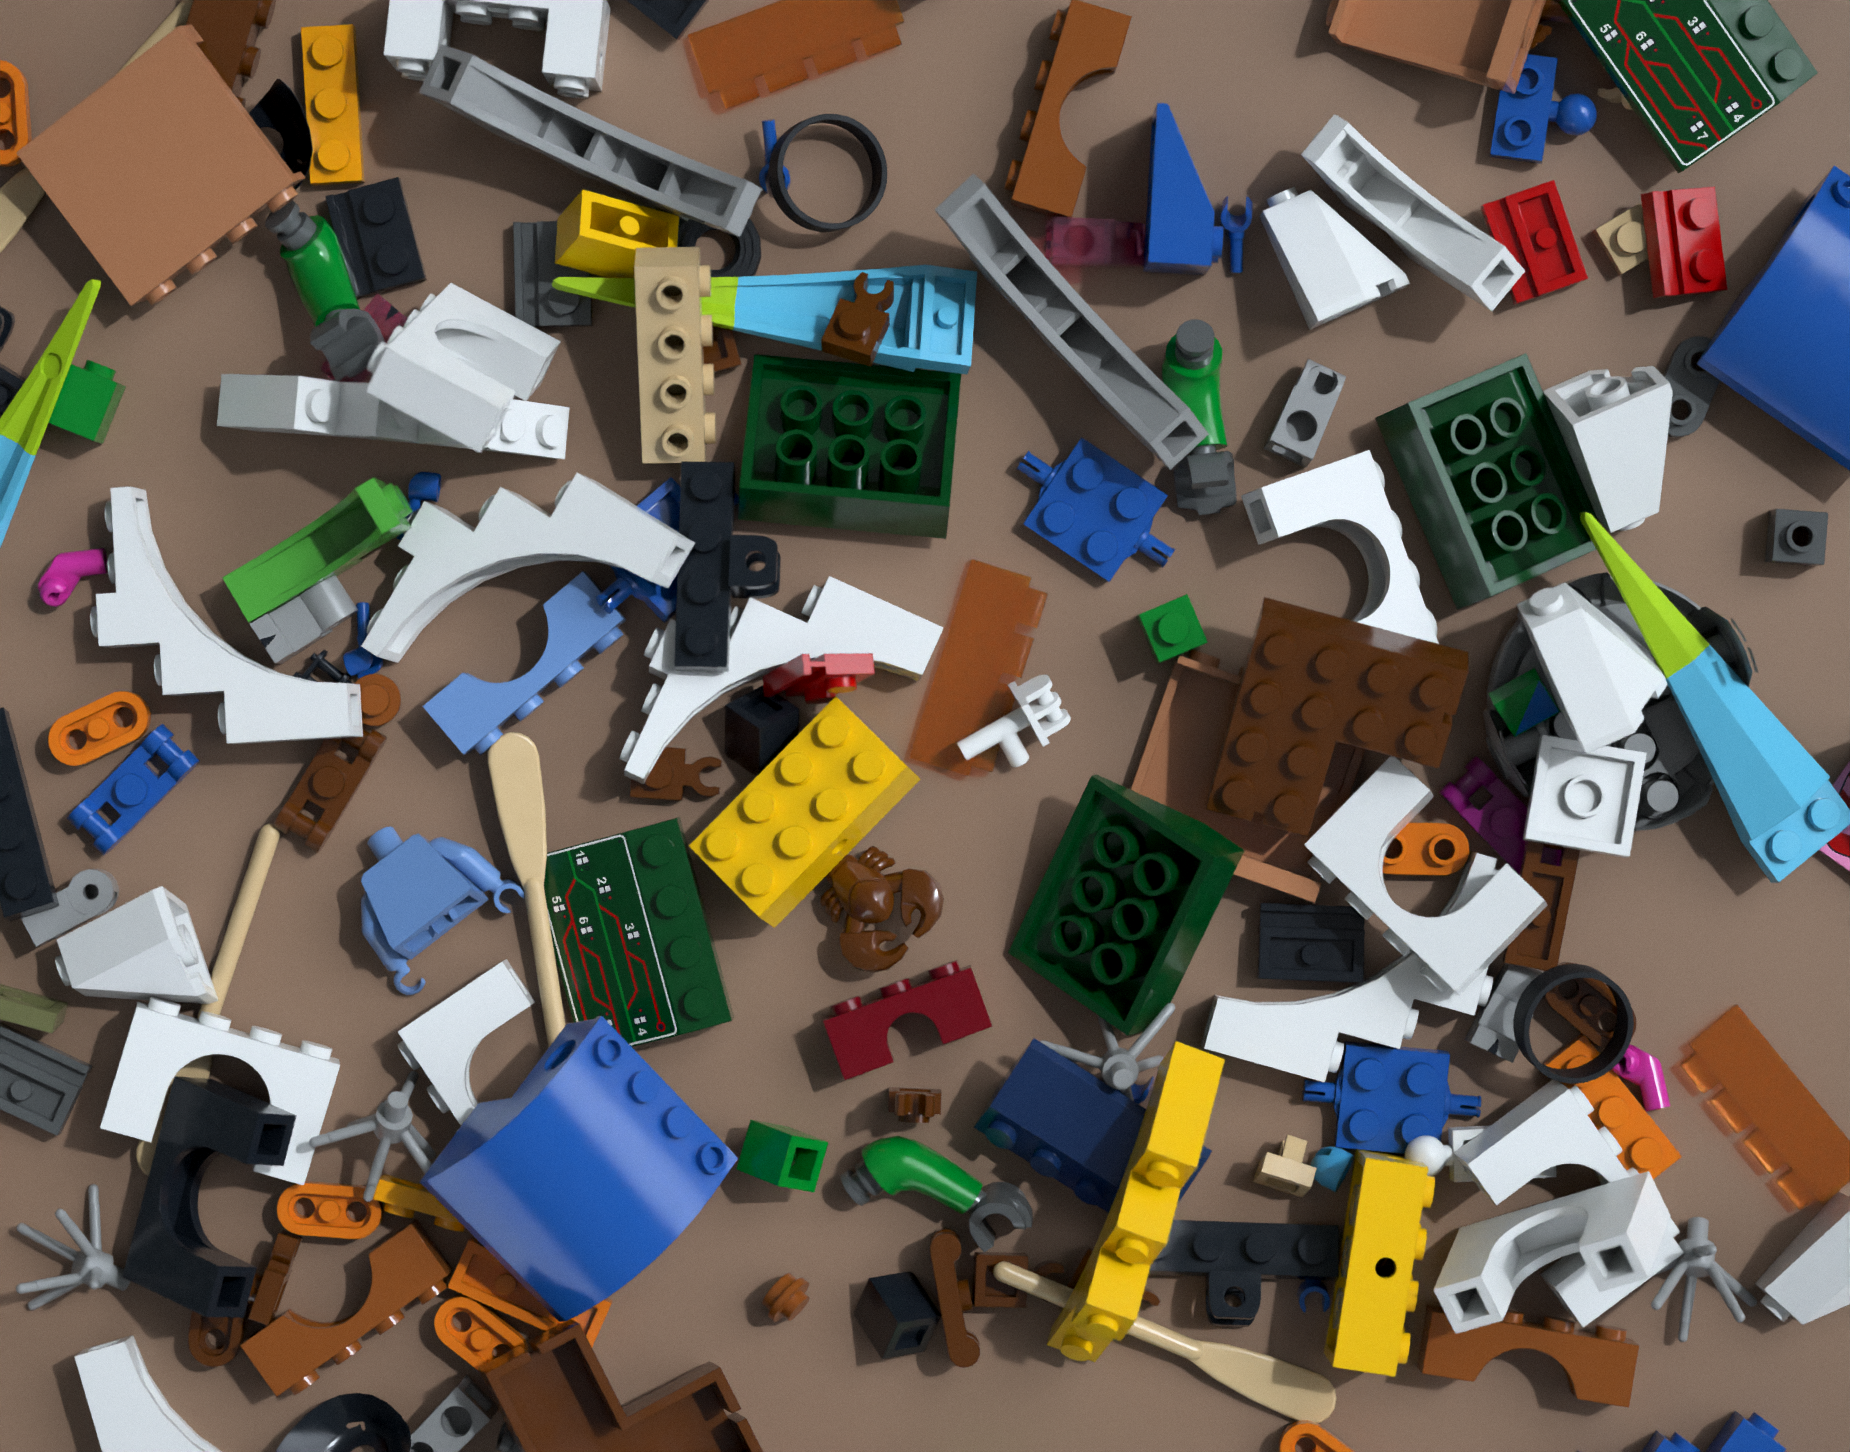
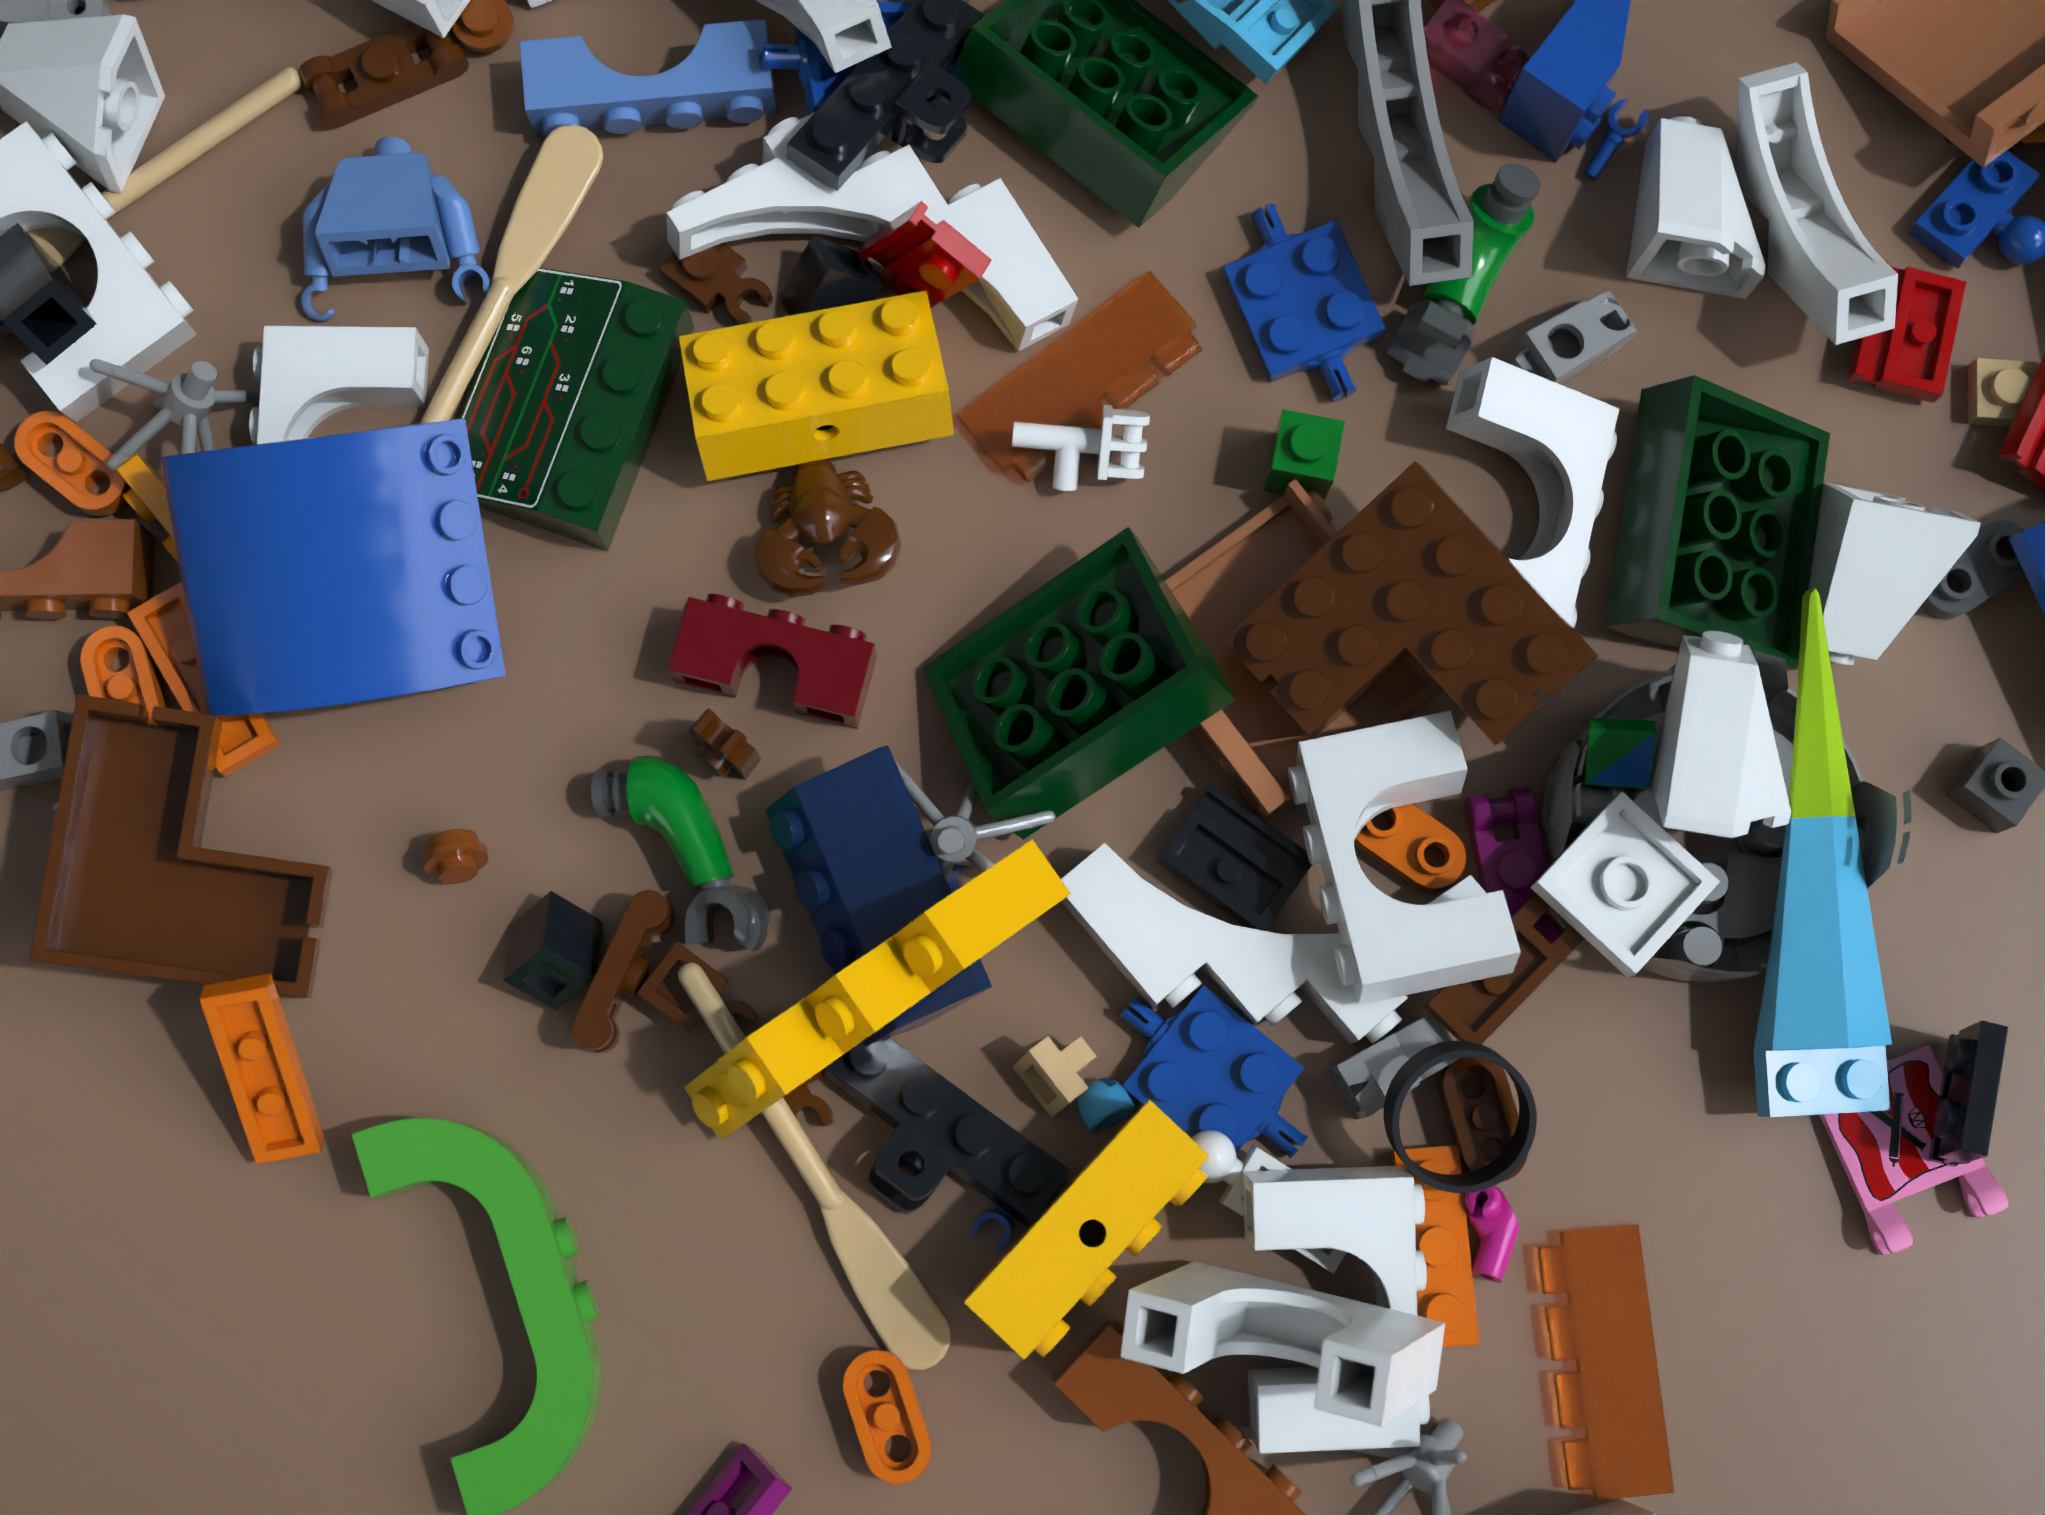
camera: 30 degrees right, 10 degrees down
(782, 1156) = (552, 706): green brick -> none

